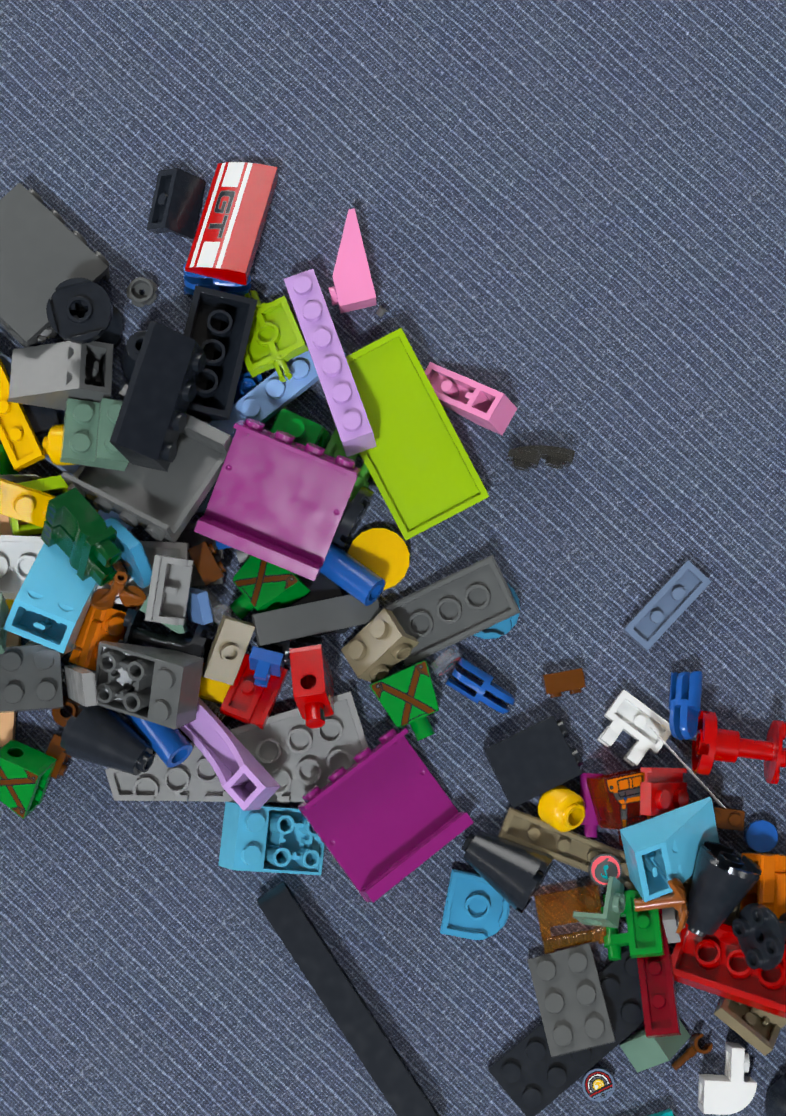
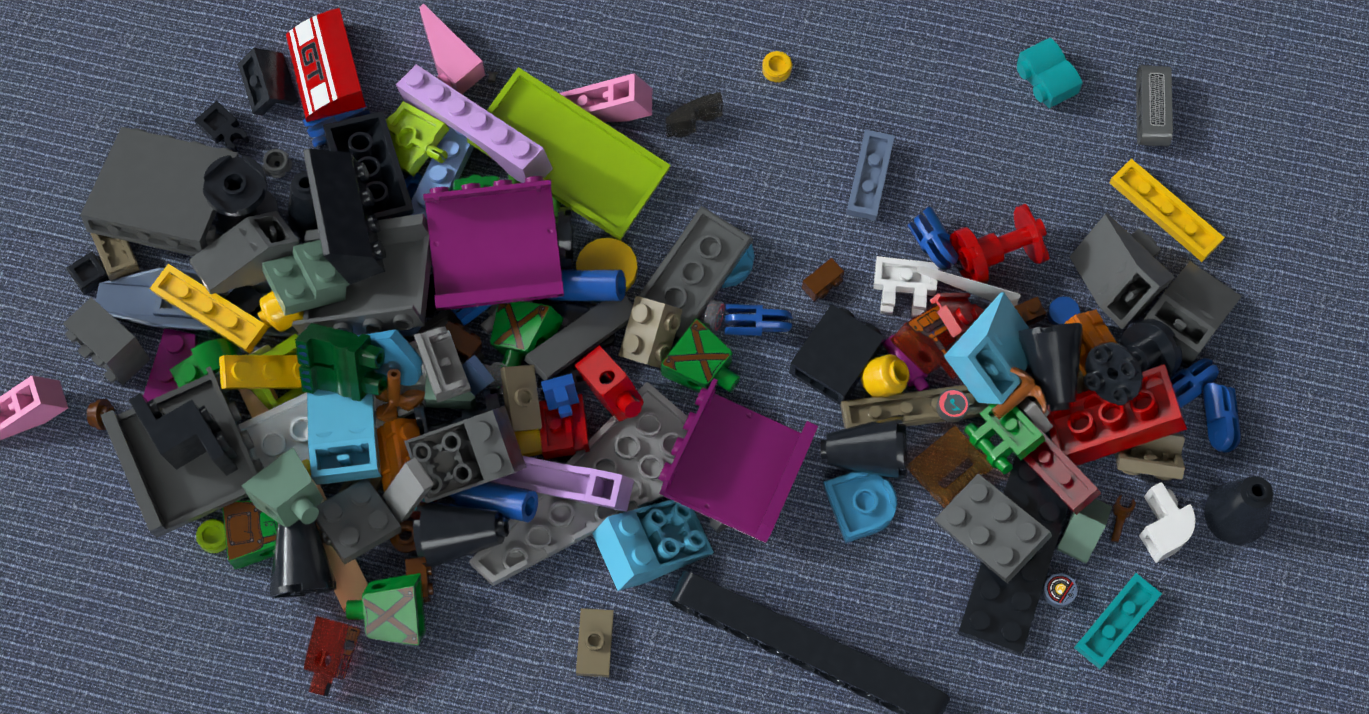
camera: 30 degrees left, 15 degrees down
(110, 225) = (220, 125): none -> black plate
(175, 897) = (594, 642): none -> dark tan plate
(613, 906) = (979, 433): sand green bracket -> none
(646, 447) = (777, 66): none -> yellow tile

